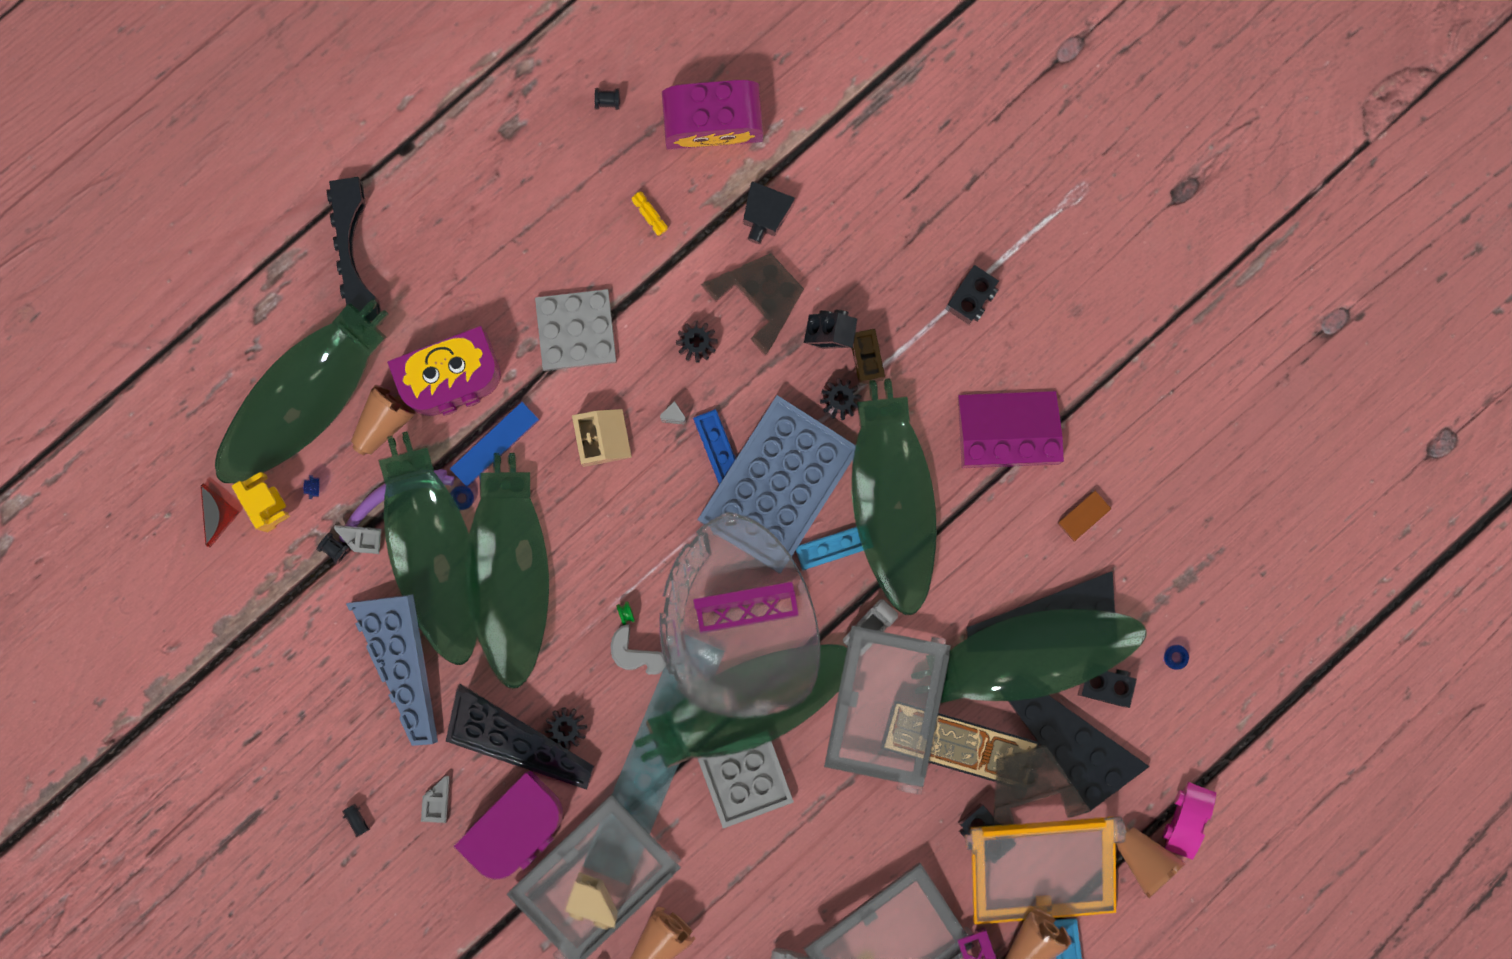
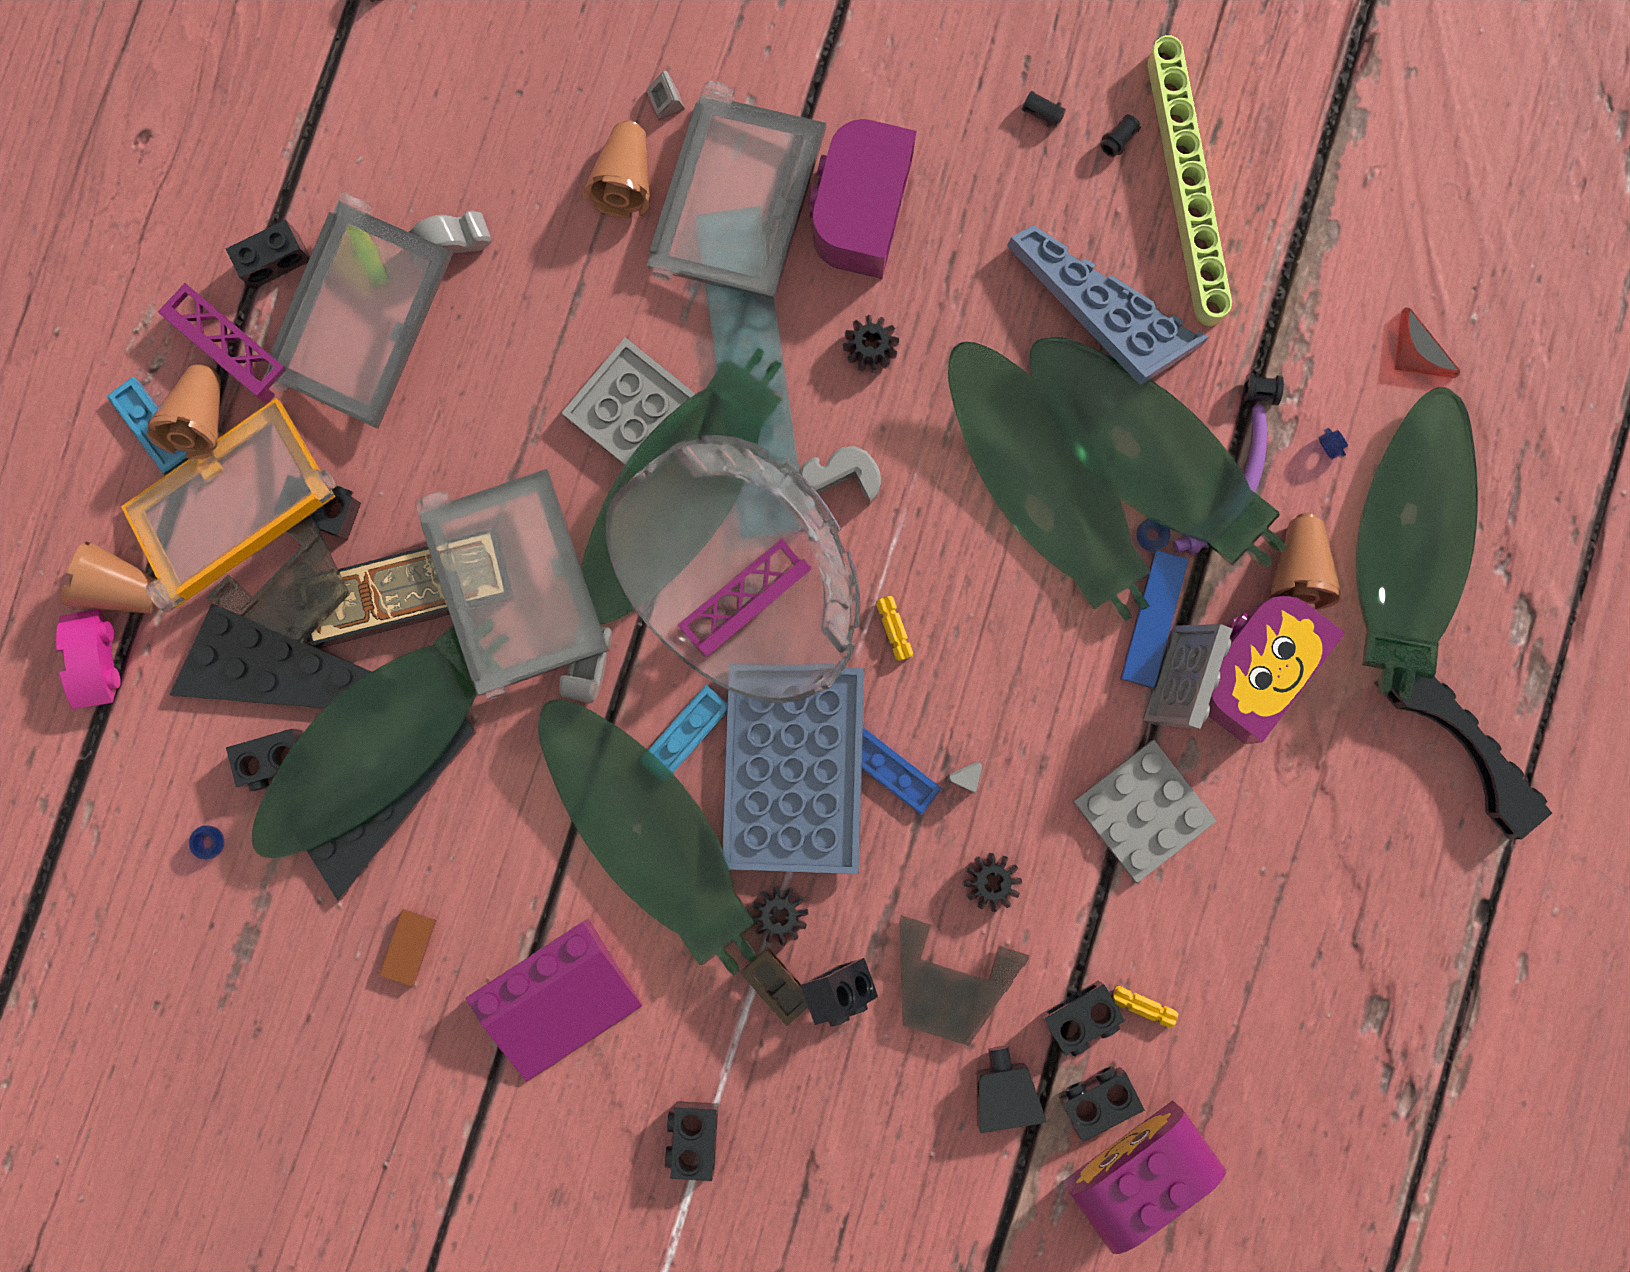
camera: 155 degrees right, 0 degrees up
(261, 502) = (1379, 384): yellow panel -> none
(283, 722) = (1192, 166): none -> yellowish green beam
(317, 771) = (1114, 142): none -> black pin
(360, 538) = (1239, 418): light grey tile -> none
(436, 802) = (966, 181): light grey tile -> none
(495, 733) = (945, 289): black wing -> none
(499, 393) = (1188, 675): none -> light grey plate
(592, 901) = (721, 162): tan slope -> none
(601, 437) = (1035, 699): tan slope -> none
(607, 98) = (1284, 1120): black bush -> none
(625, 613) = (882, 513): green bush -> none
(662, 535) = (894, 628): none -> yellow axle
(691, 235) = (1078, 1009): none -> black brick
(712, 166) = (1104, 1113): none -> black brick

